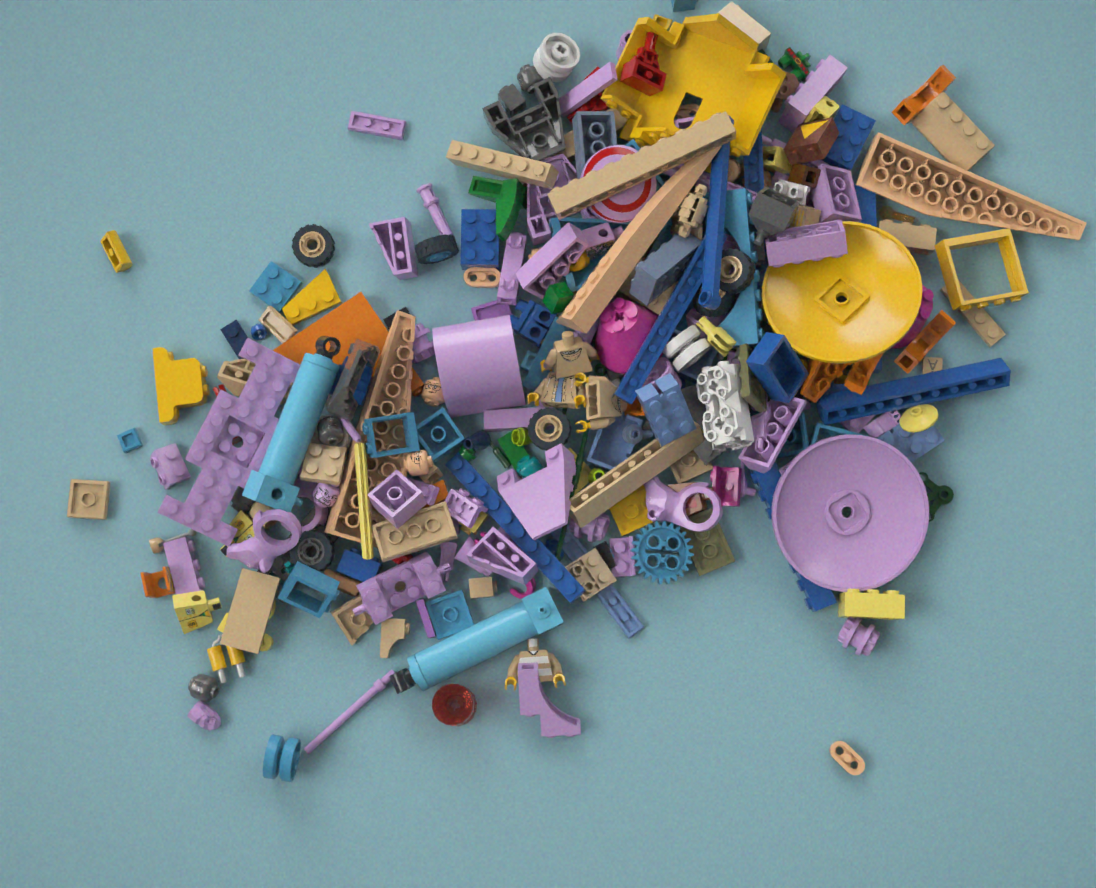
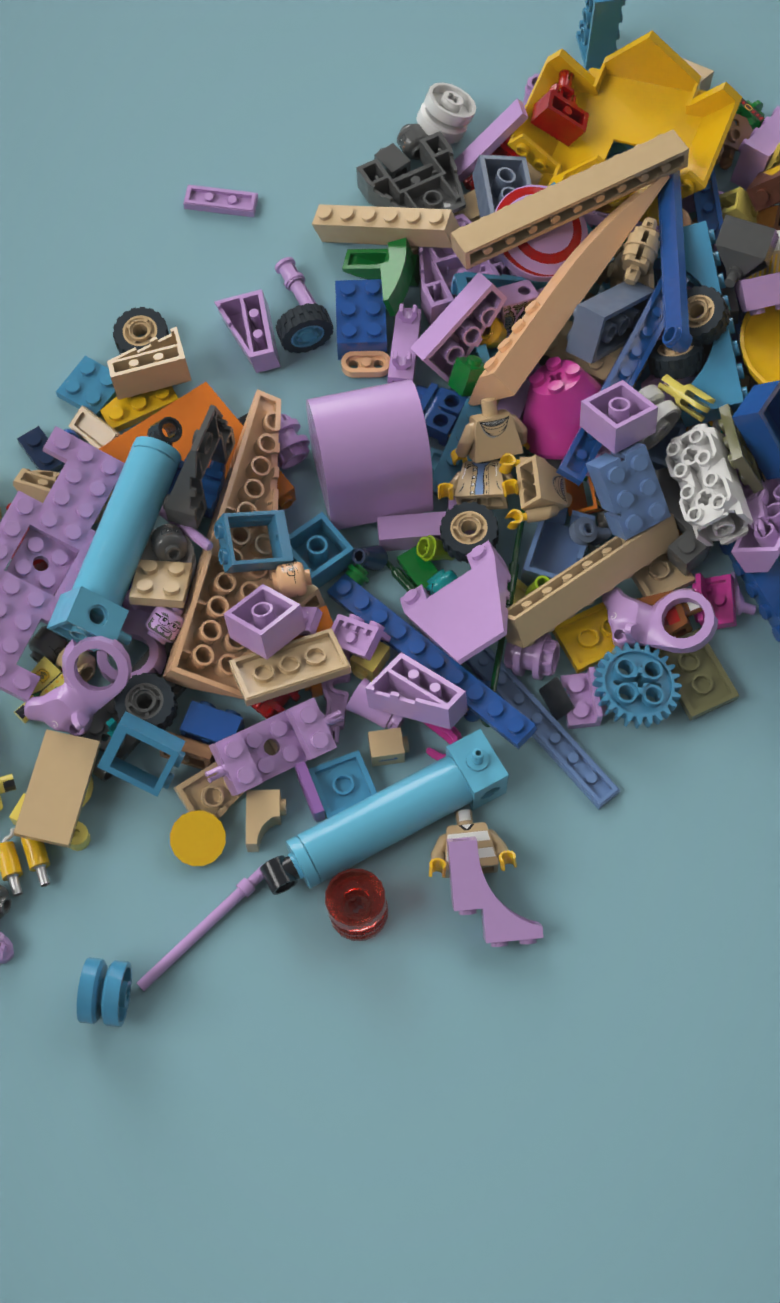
camera: 10 degrees left, 15 degrees down
(319, 279) = (149, 368): none -> tan wedge
(347, 649) = (197, 838): none -> yellow tile
(363, 501) = (218, 629): light yellow axle -> none
(432, 392) = (308, 500): light nougat head -> none
(591, 573) = (549, 719): tan plate -> none
(660, 359) = (618, 416): none -> lavender brick

